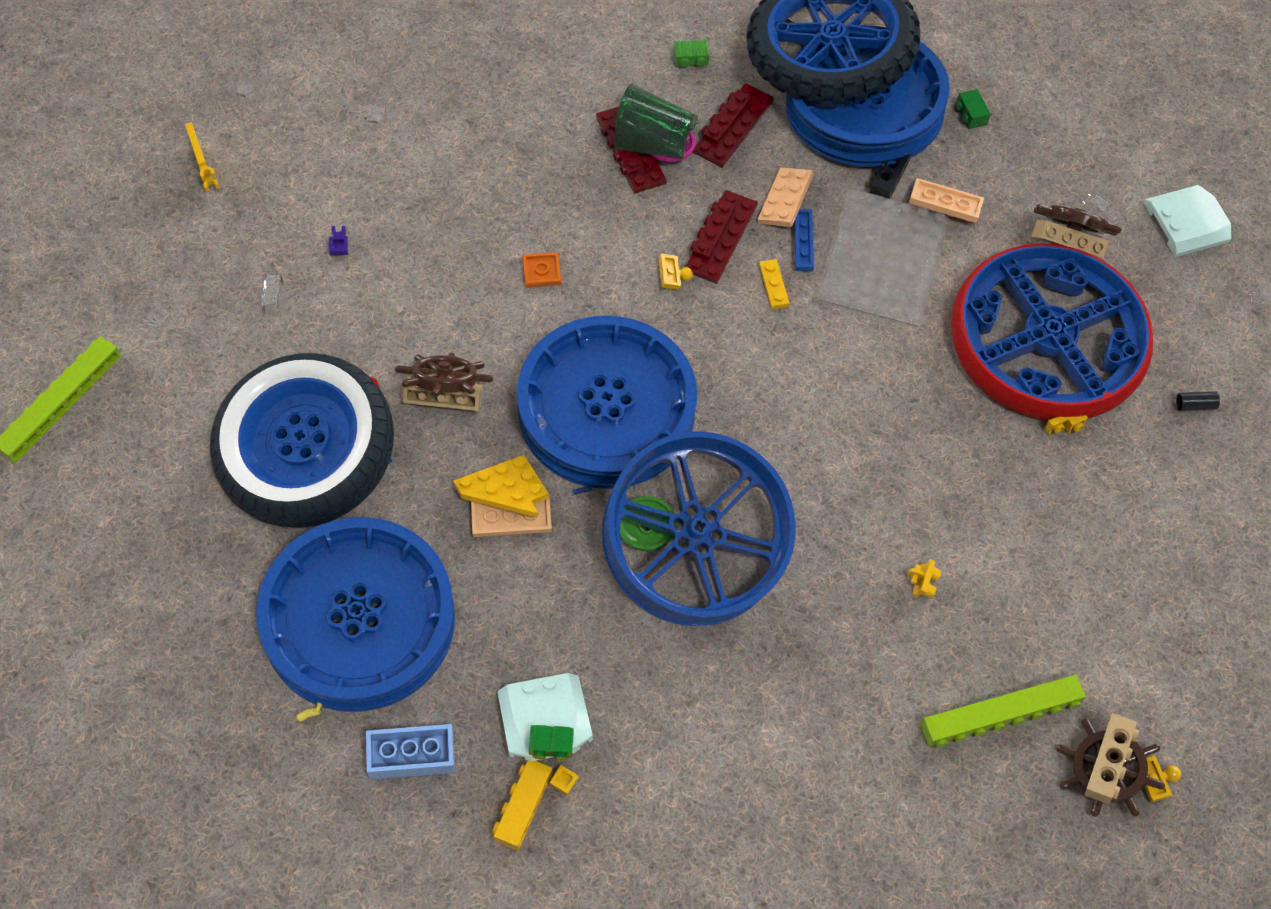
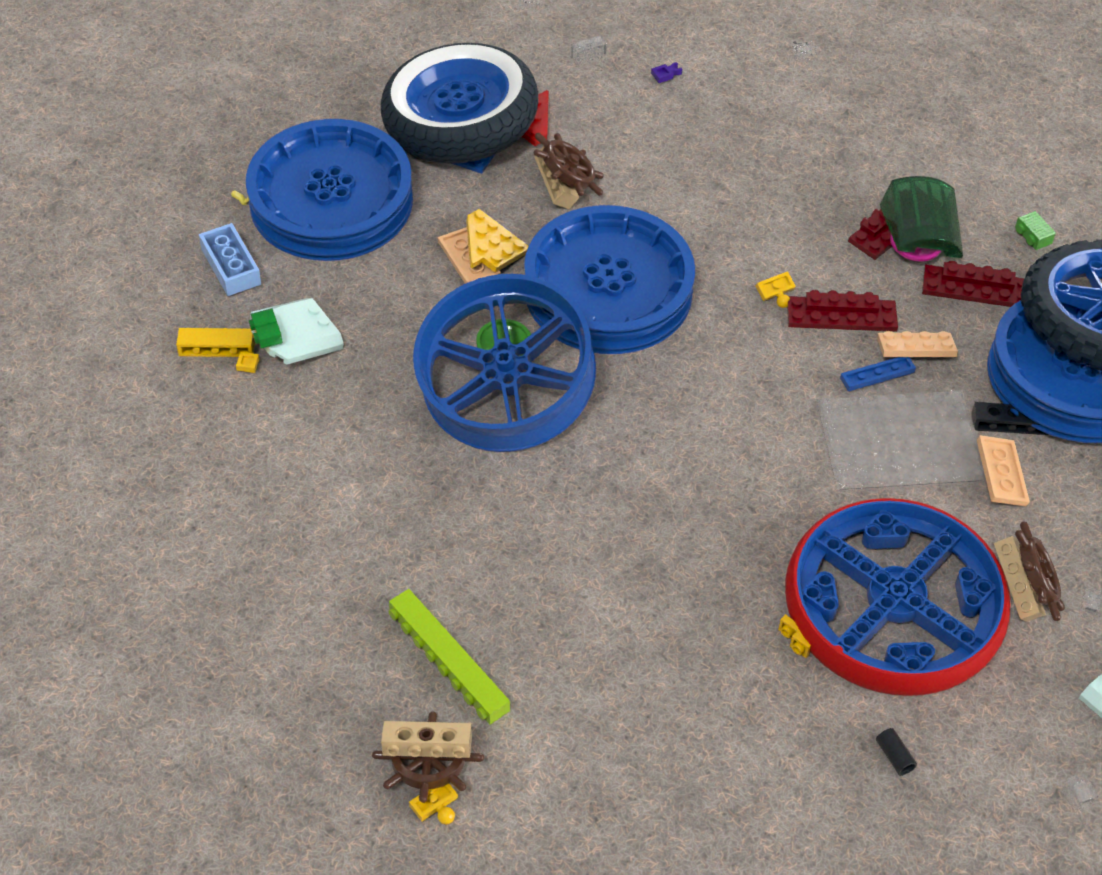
camera: 70 degrees right, 10 degrees down
(541, 269) = (723, 204): orange tile -> none
(774, 284) = (813, 366): yellow plate -> none
(921, 577) = (560, 557): yellow hips -> none

